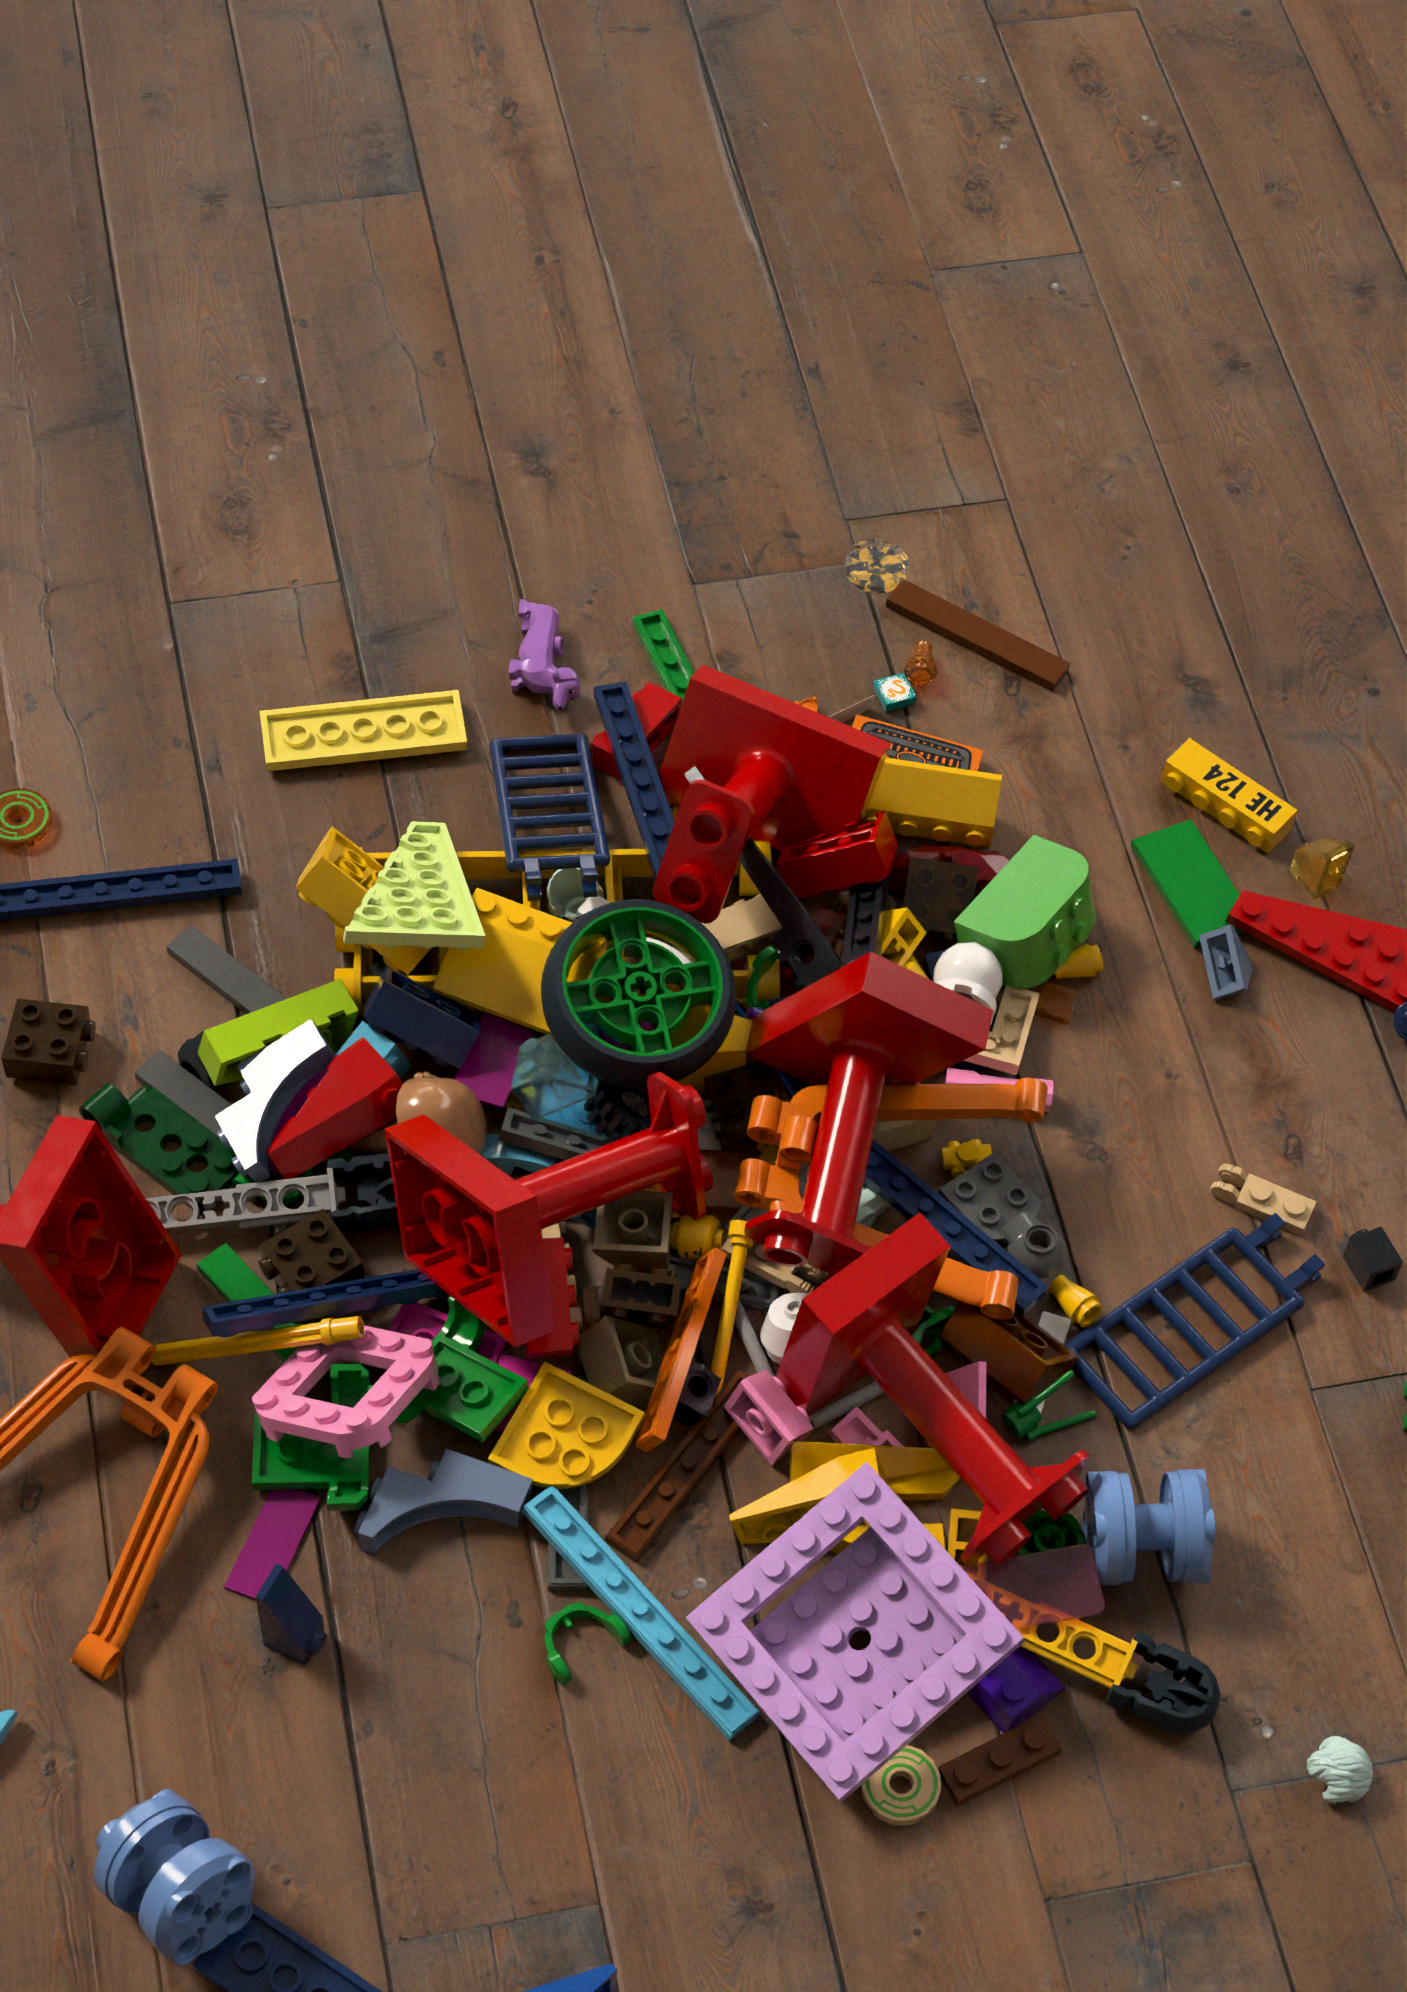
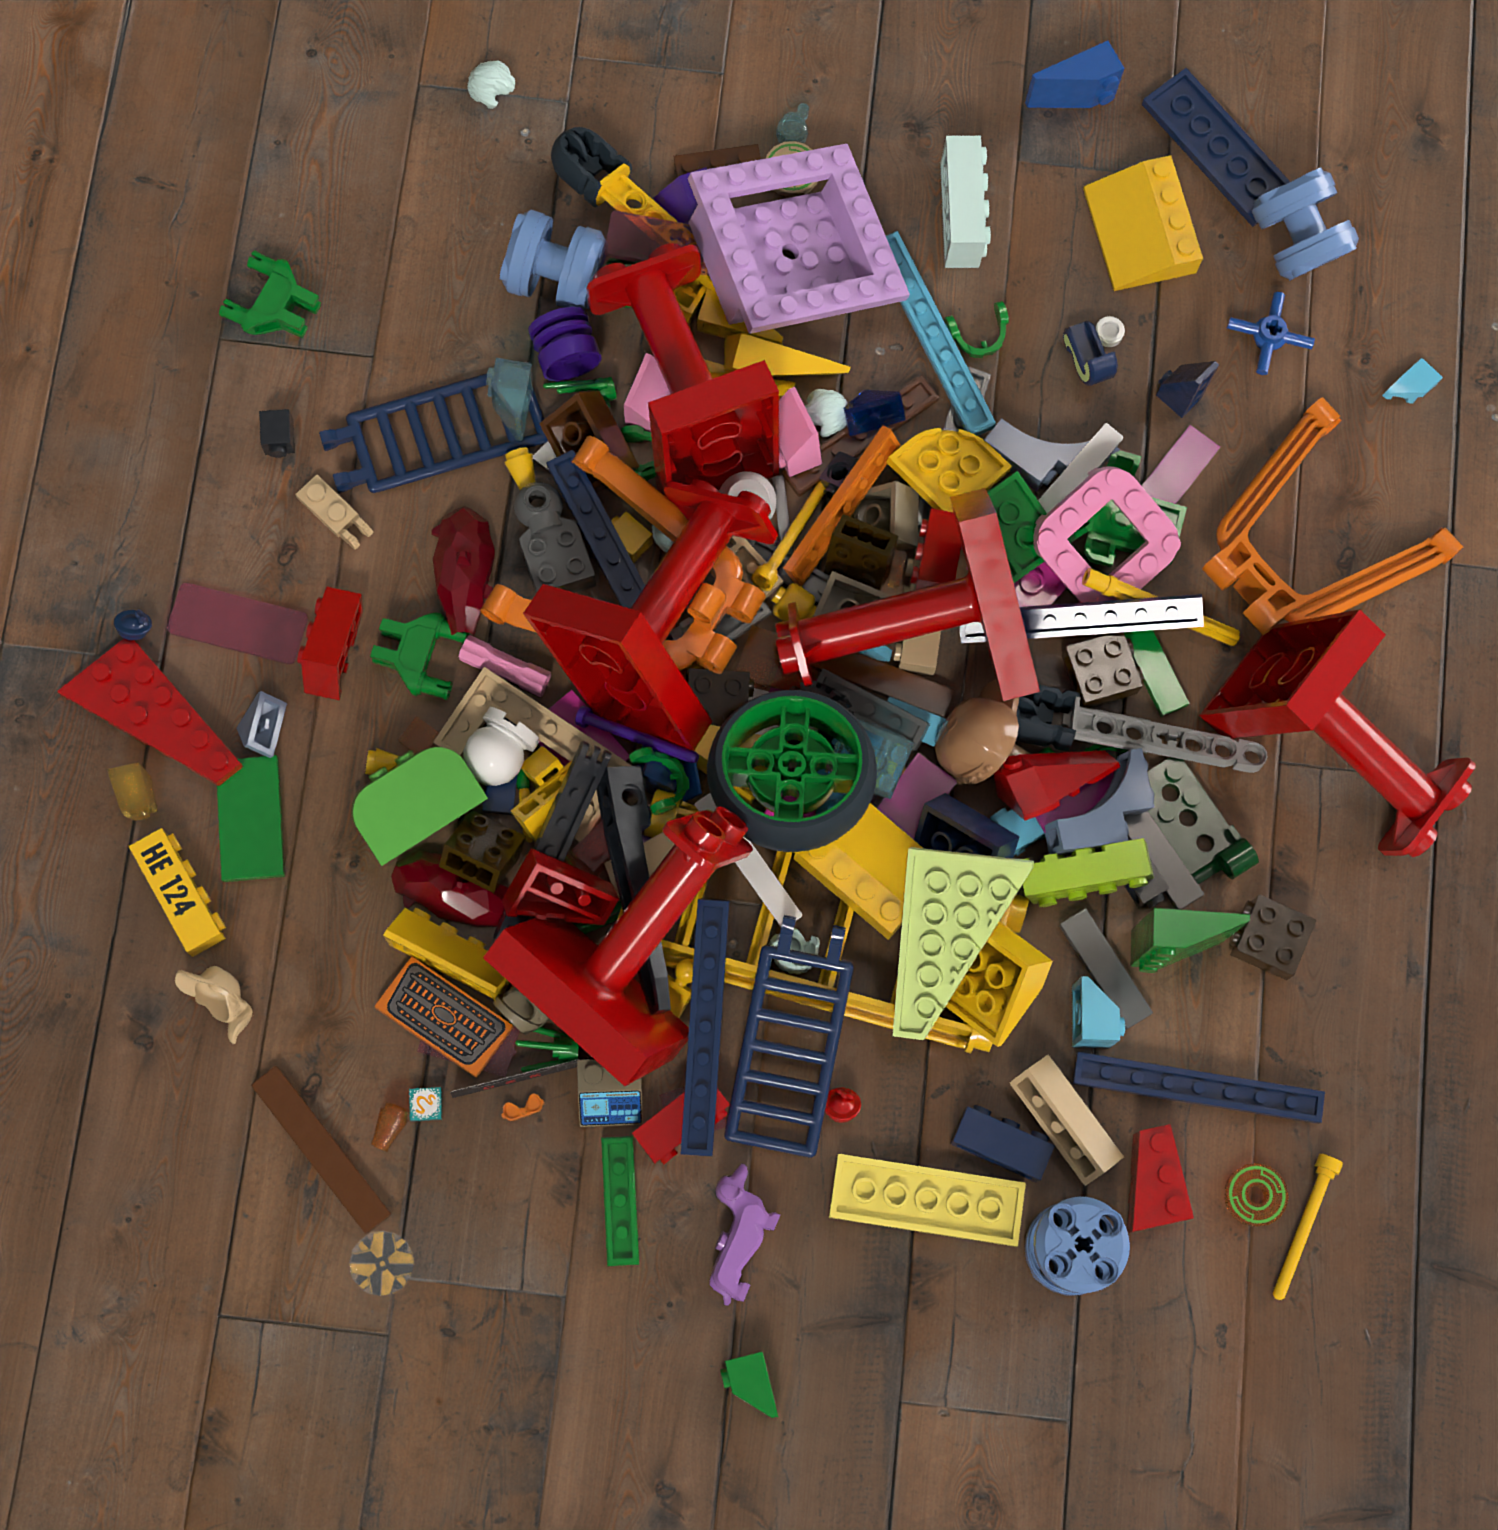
camera: 165 degrees left, 20 degrees up
(125, 794) = (1157, 1181): none -> red wedge
(149, 982) = (1175, 934): none -> green slope
(186, 1732) = (1266, 341): none -> blue bar
(200, 702) = (1096, 1248): none -> medium blue wheel
(230, 909) = (1094, 1017): none -> medium azure slope
(237, 822) = (1066, 1120): none -> tan brick
(299, 790) = (1003, 1143): none -> dark blue brick
(399, 1850) = (1143, 224): none -> yellow slope
(404, 1469) = (1088, 459): none -> white sticker
(408, 1692) = (1110, 331): none -> white tile
(426, 1637) = (1088, 354): none -> dark blue animal
(476, 784) = (842, 1104): none -> red hat
(489, 552) = (750, 1382): none -> green slope
(655, 1784) = (963, 201): none -> light aqua brick
(685, 1484) = (872, 410): none -> clear blue slope
(738, 1471) = (827, 411): none -> light aqua hair
(920, 1845) = (793, 125): none -> clear light blue piece
(1089, 1427) = (564, 344): none -> dark purple wheel
(1091, 1175) = (463, 567): none -> dark red piece
(1106, 1077) = (415, 652): none -> green connector
(1124, 1350) = (511, 393): none -> clear light blue slope
(1137, 723) = (220, 995): none -> tan hair
(1198, 1055) = (330, 641): none -> red wedge
(1307, 1062) = (237, 623): none -> clear pink piece

